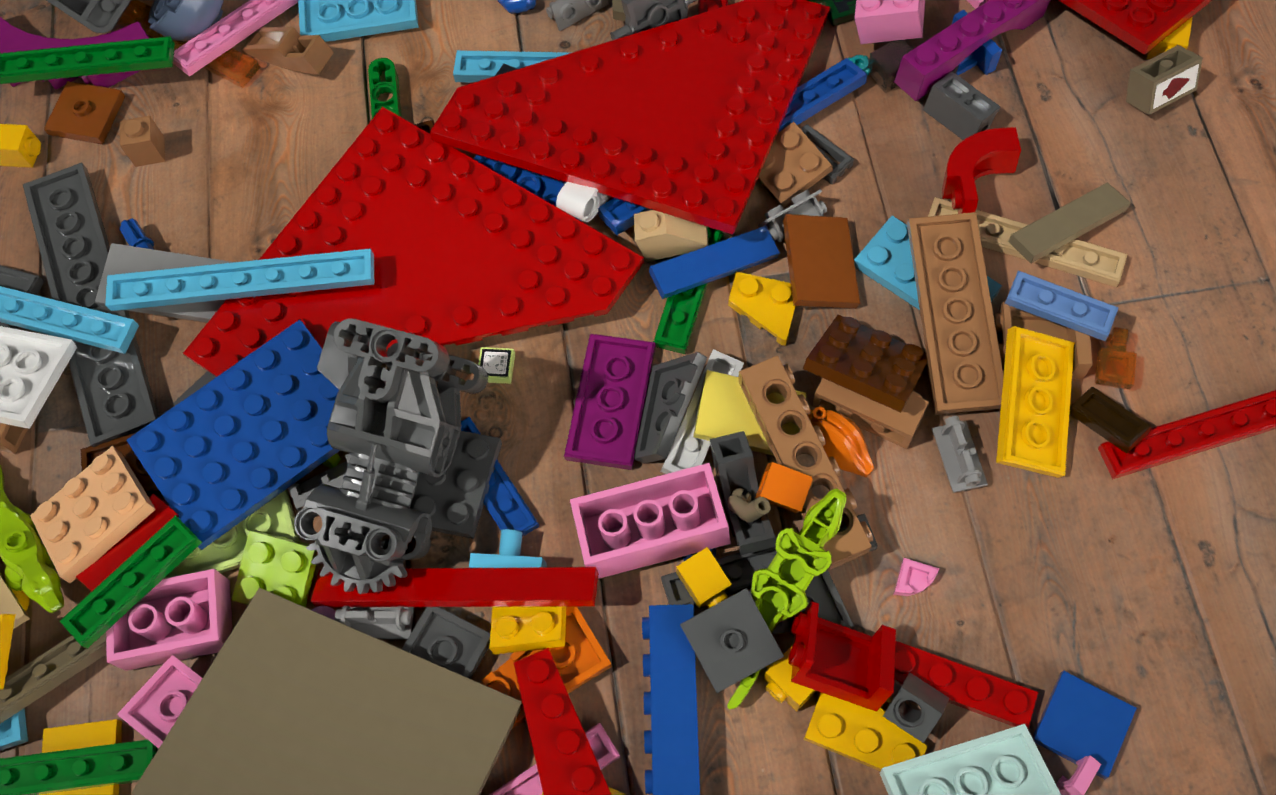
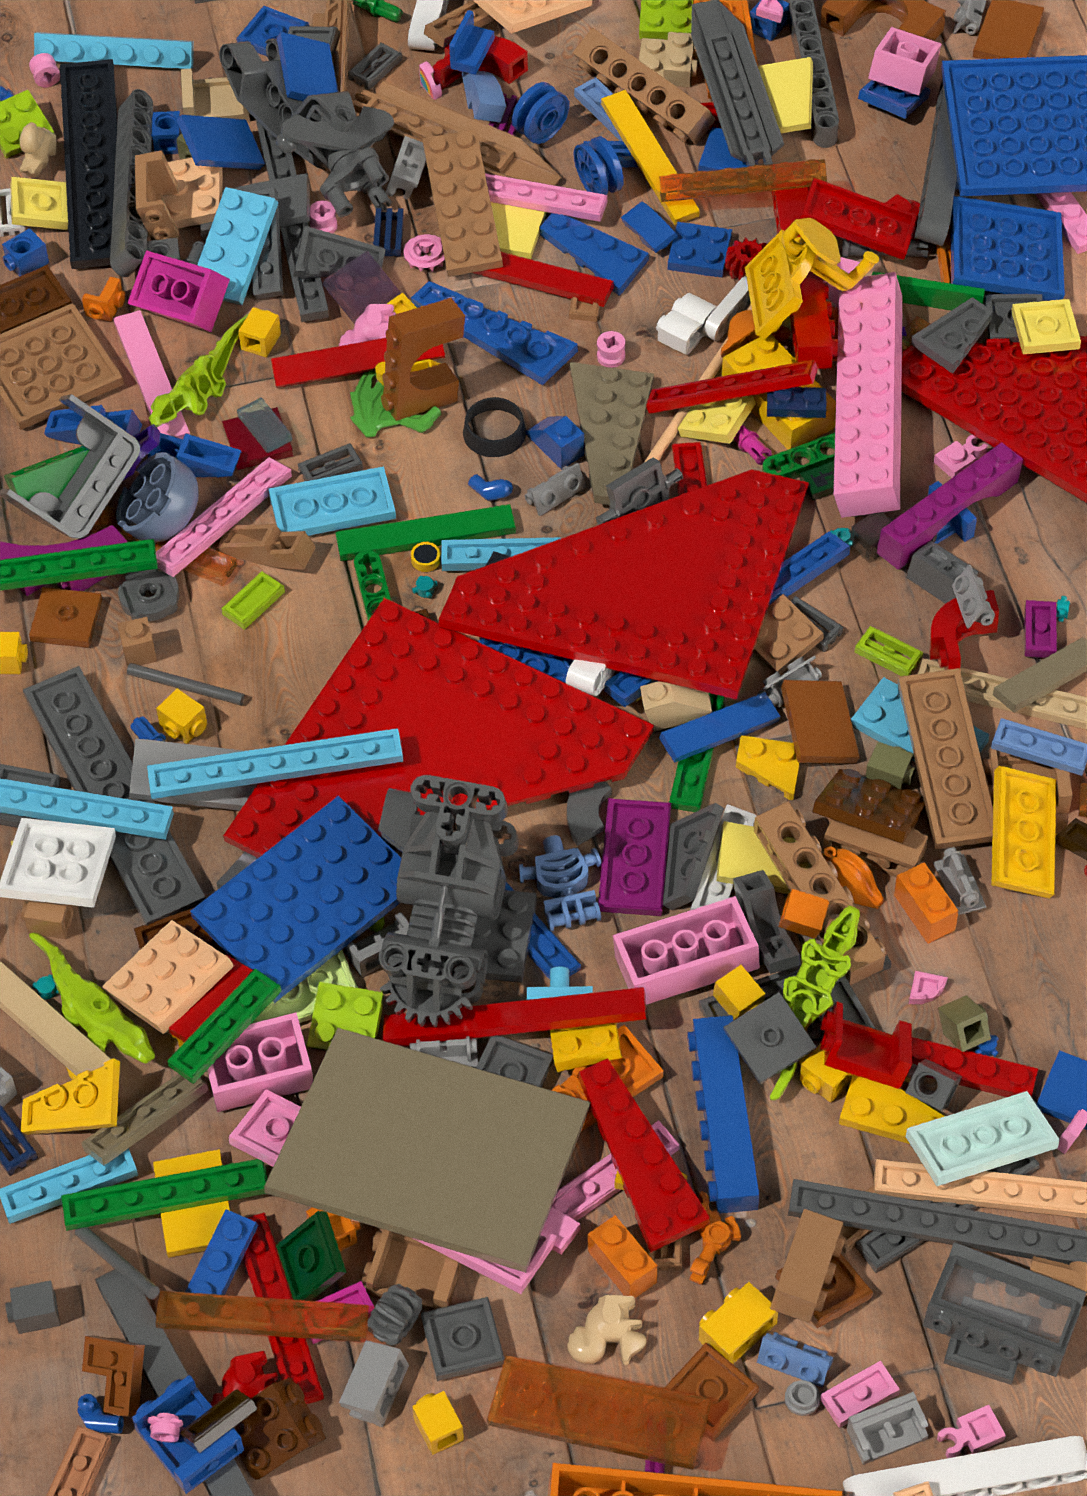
camera: 10 degrees left, 10 degrees down
(170, 106) = (155, 607): none -> dark grey plate
(171, 221) = (181, 716): none -> yellow brick
(186, 186) = (185, 684): none -> dark grey bar
(267, 103) = (253, 600): none -> lime tile
(436, 97) = (425, 586): none -> teal piece
(440, 67) = (425, 557): none -> tile
(445, 41) = (406, 534): none -> green tile
(498, 364) = (526, 830): tile -> none
(530, 410) = (562, 876): none -> medium blue piece
(563, 346) = (583, 812): none -> dark grey tile
(747, 510) = (773, 933): dark tan arm -> none
(893, 315) = (891, 765): none -> olive brick
(896, 191) = (886, 655): none -> lime tile
(921, 478) = (926, 902): none -> orange brick
(957, 631) = (964, 1023): none -> olive brick
(979, 655) = (989, 1047): none -> blue piece
(993, 136) = (971, 598): none -> light grey hinge
(1062, 171) = (1040, 628): none -> magenta plate
(1086, 150) = (1062, 608): none -> teal piece

